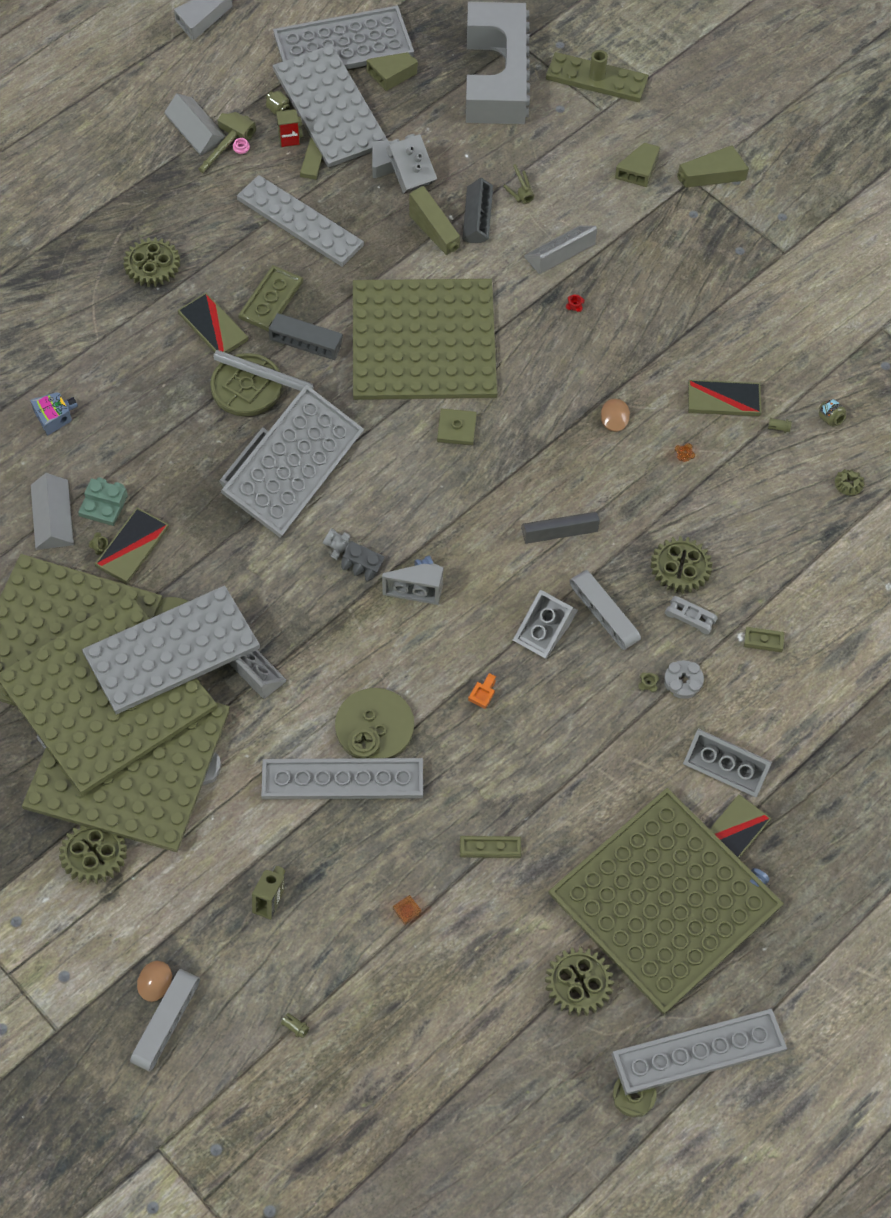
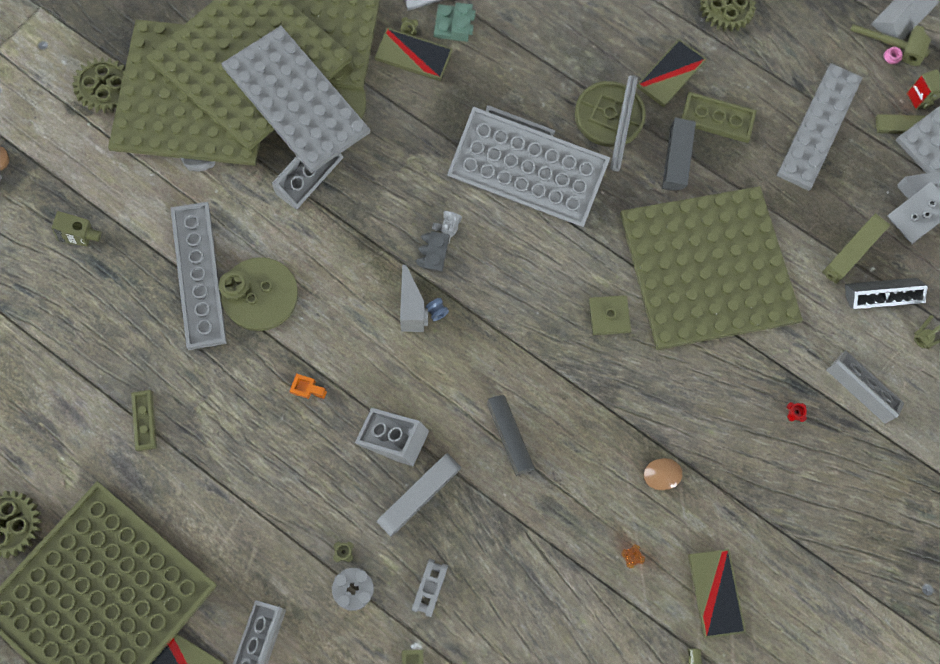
camera: 75 degrees right, 10 degrees up
(407, 910) = (70, 353): clear orange plate -> none
(699, 568) = (487, 588): olive gear -> none

